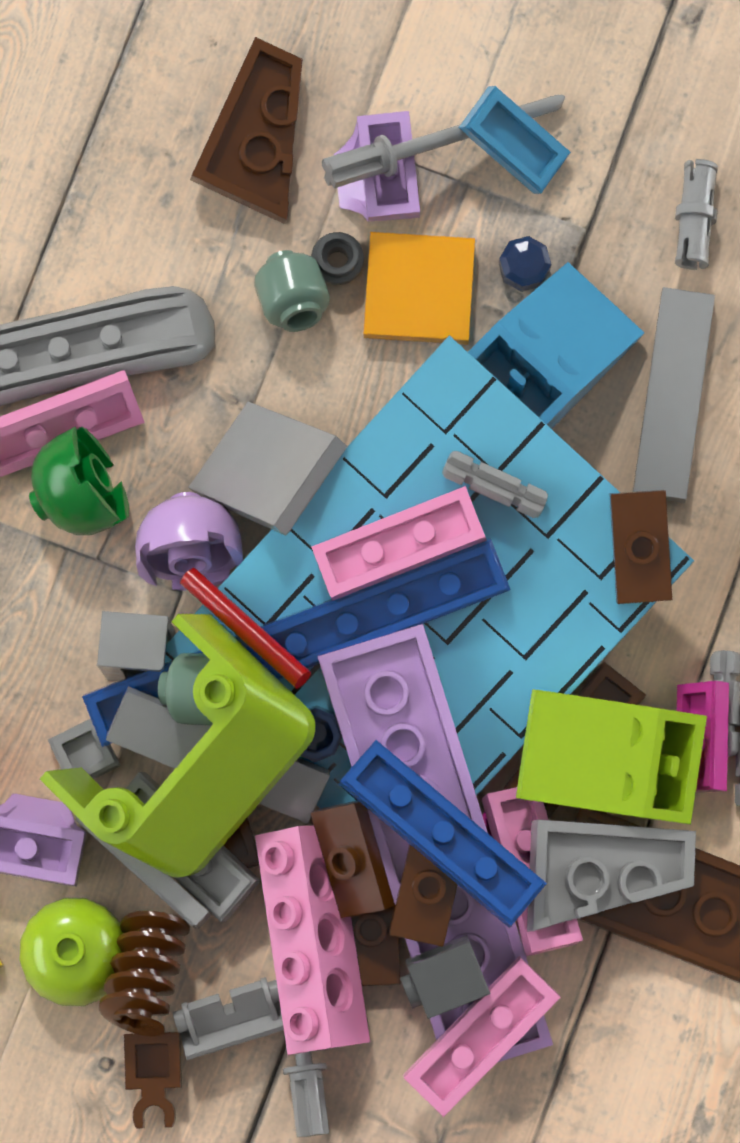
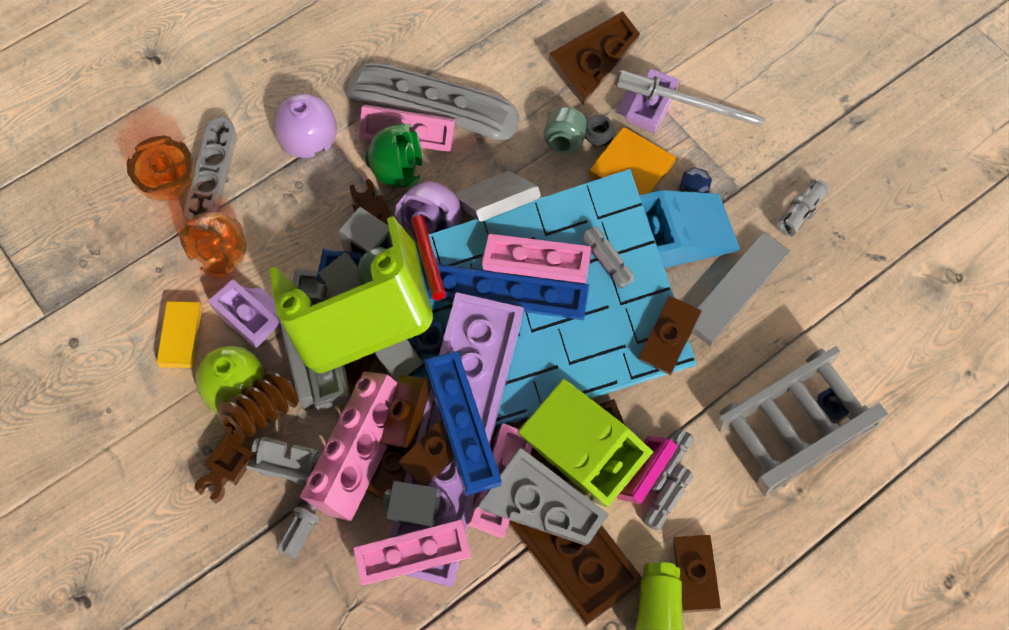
camera: 30 degrees right, 15 degrees down
(93, 584) = (370, 203): none -> reddish brown plate
(514, 140) = (726, 121): dark azure tile -> none

